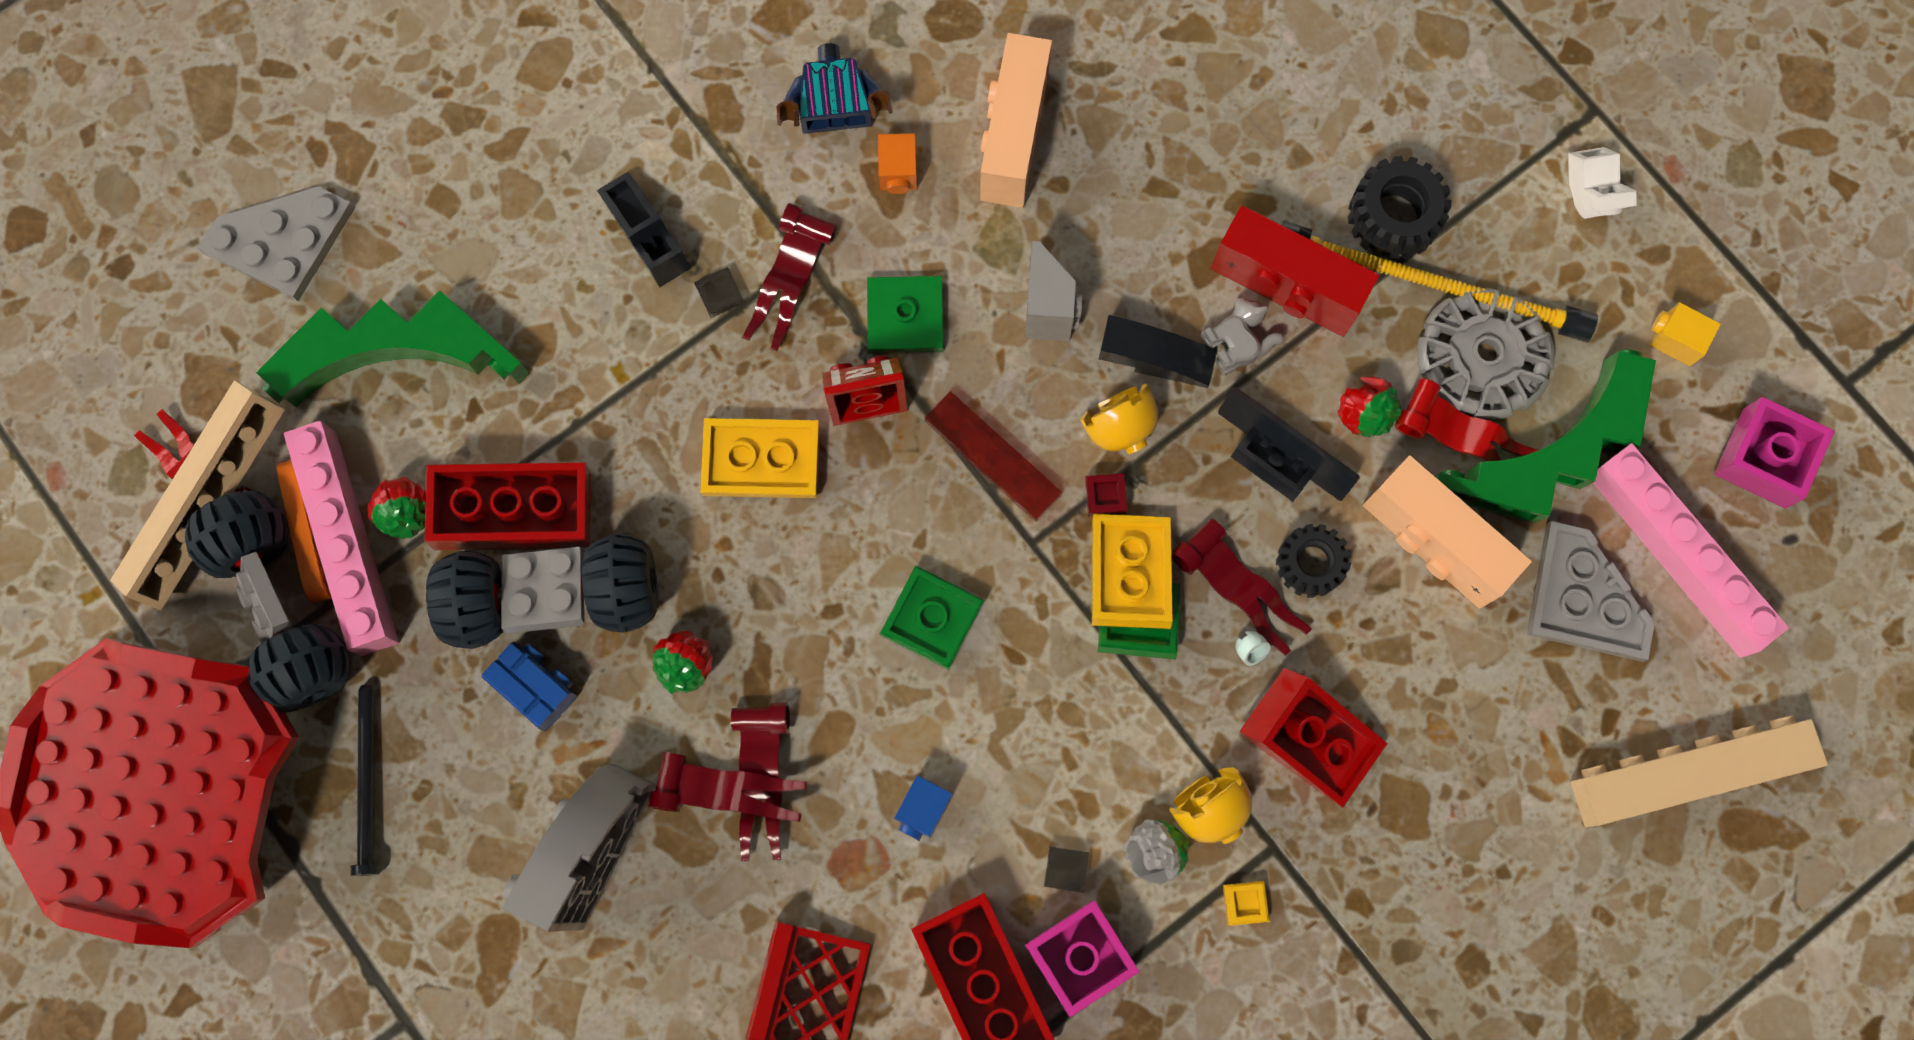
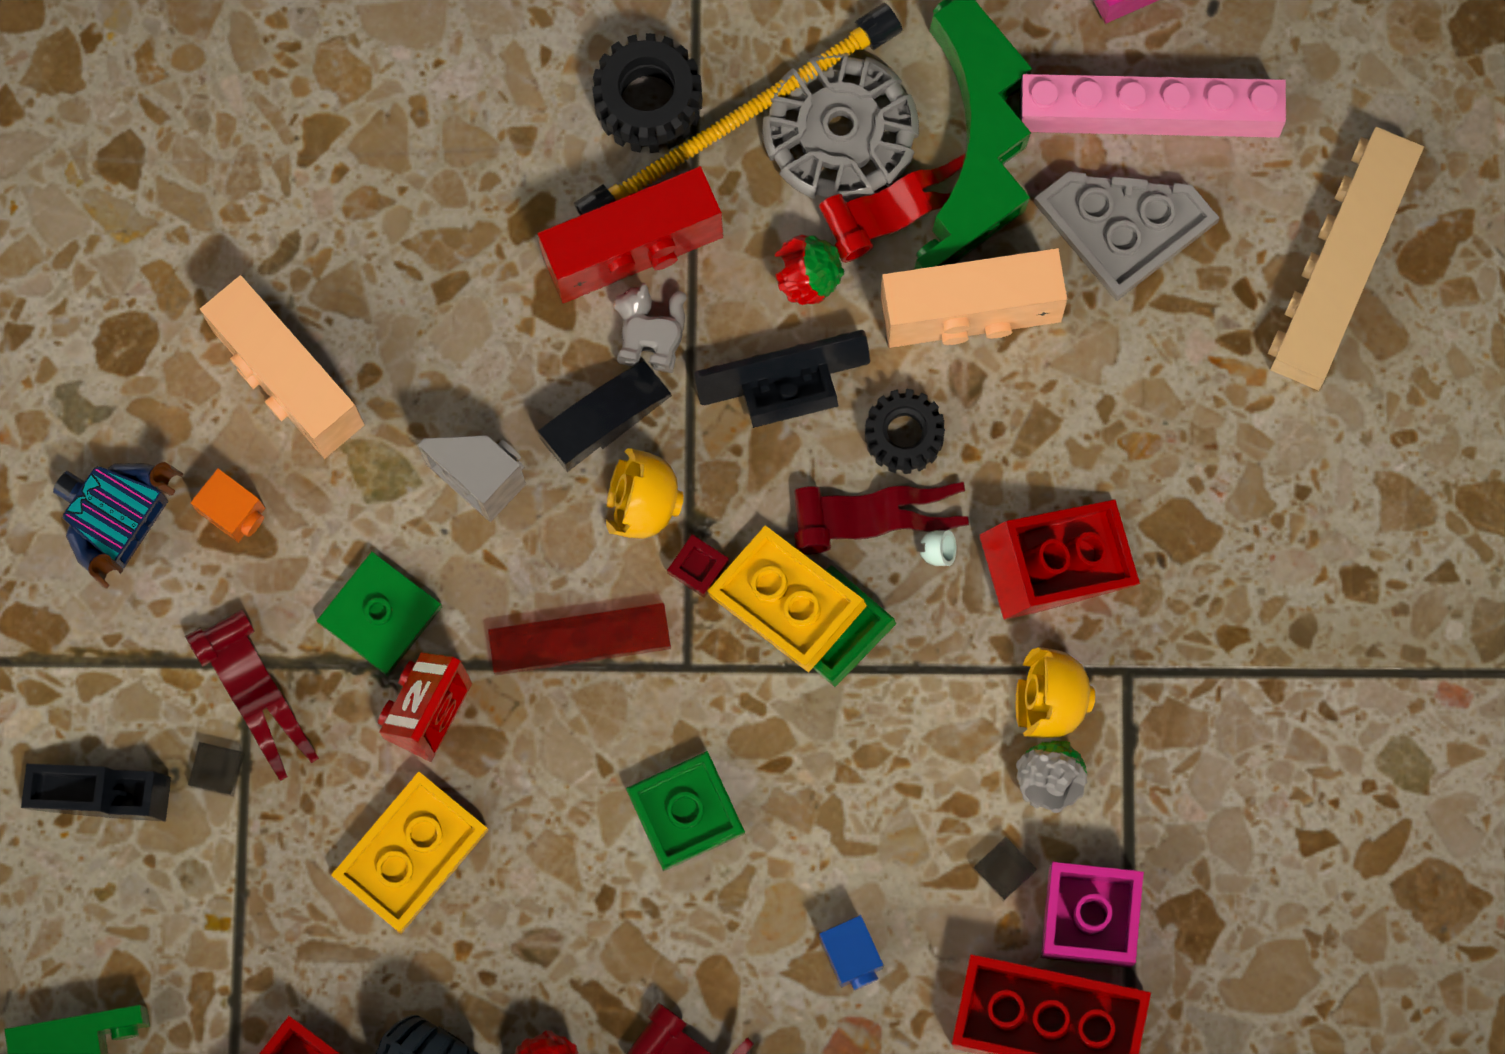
camera: 50 degrees left, 0 degrees up
(1245, 903) = (1156, 735): yellow tile -> none

